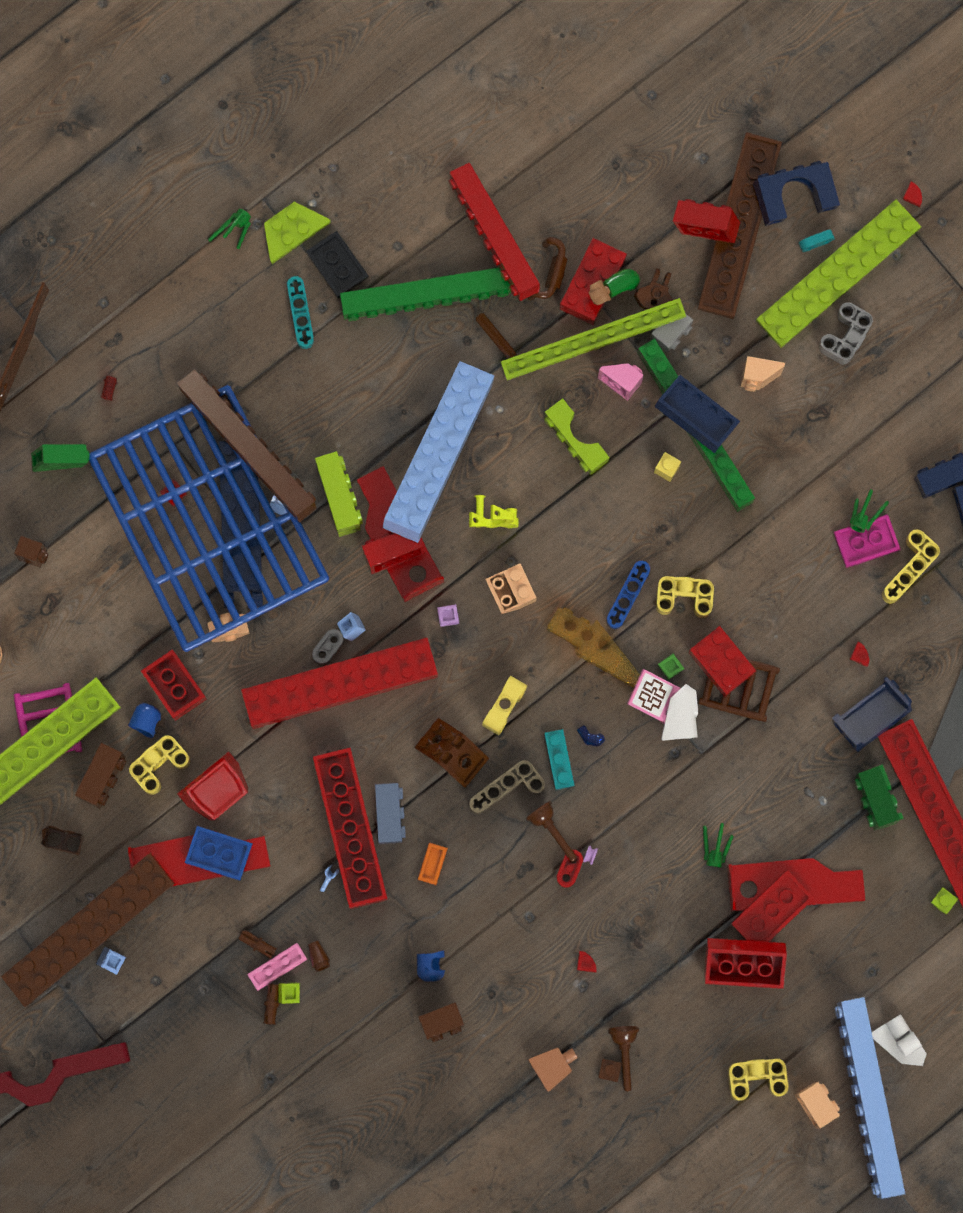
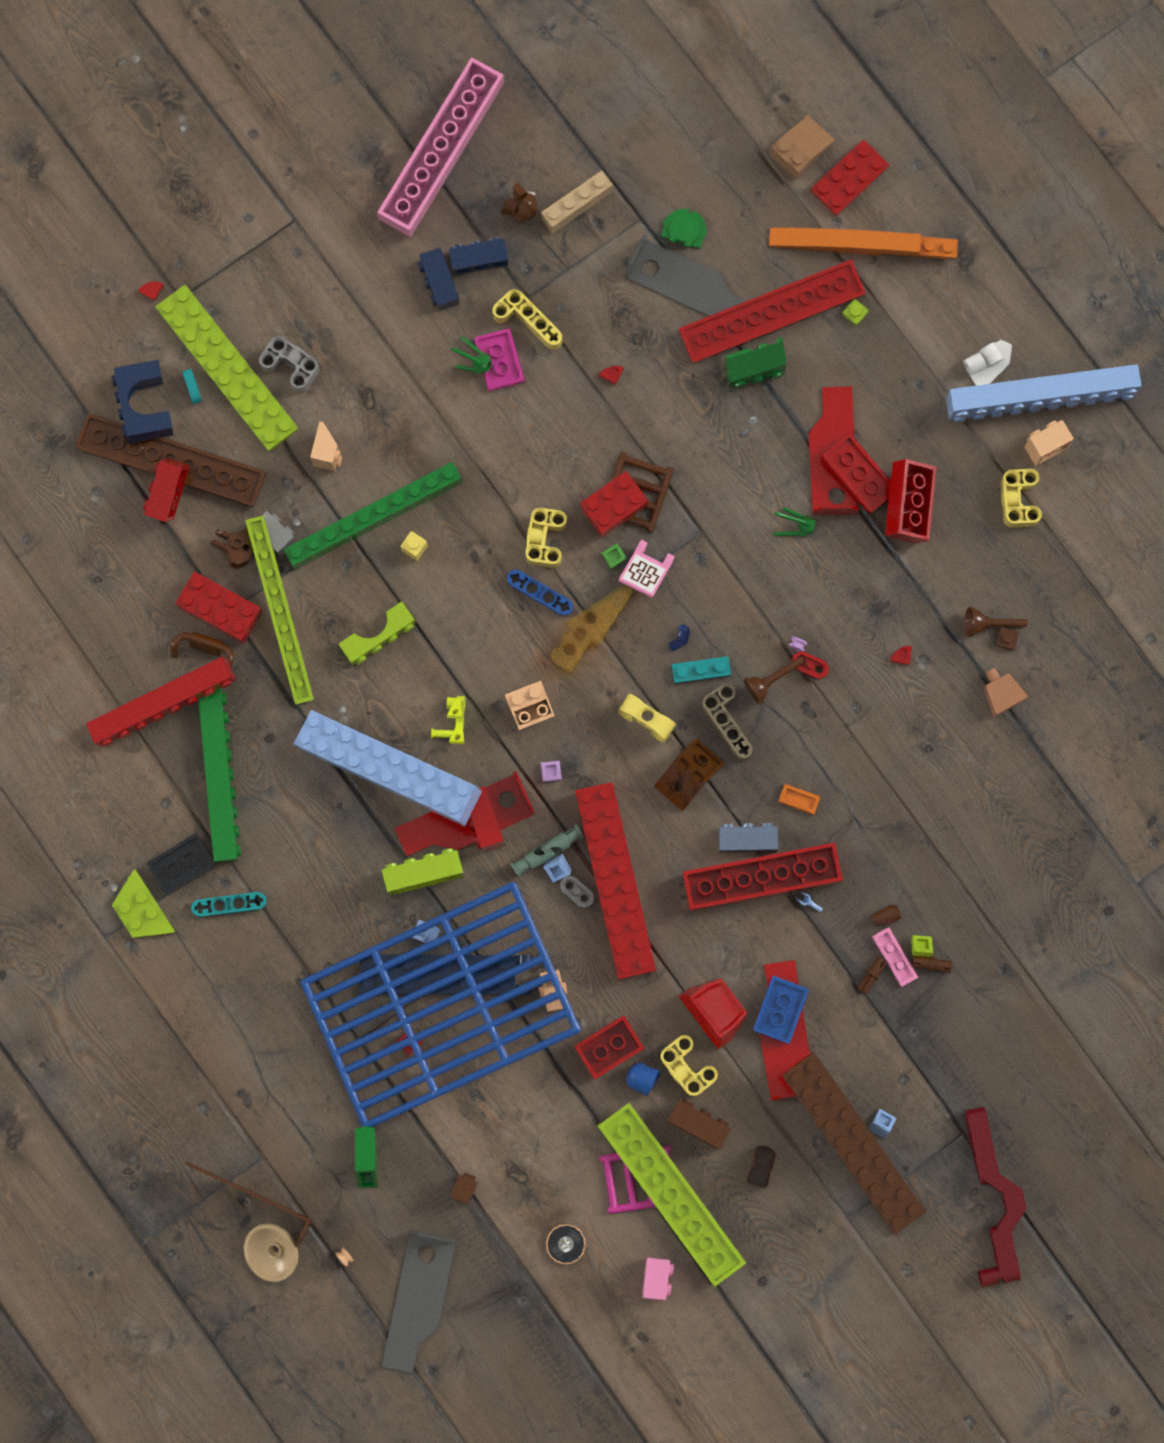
camera: 85 degrees left, 0 degrees up
(109, 387) = (295, 1104): clear red pin -> none
(238, 219) = (126, 961): green plant -> none
(247, 446) = (368, 961): reddish brown brick -> none
(369, 617) = (558, 844): none -> sand green piece
(428, 966) = (901, 807): blue helmet -> none
(441, 1022) = (959, 794): reddish brown brick -> none
(495, 336) = (268, 708): reddish brown axle -> none
(617, 283) = (227, 584): green piece -> none
(621, 378) = (323, 583): bright pink slope -> none
(681, 715) = (665, 548): white panel -> none
(697, 413) = (365, 510): dark blue slope -> none
(873, 714) = (672, 364): dark blue panel -> none

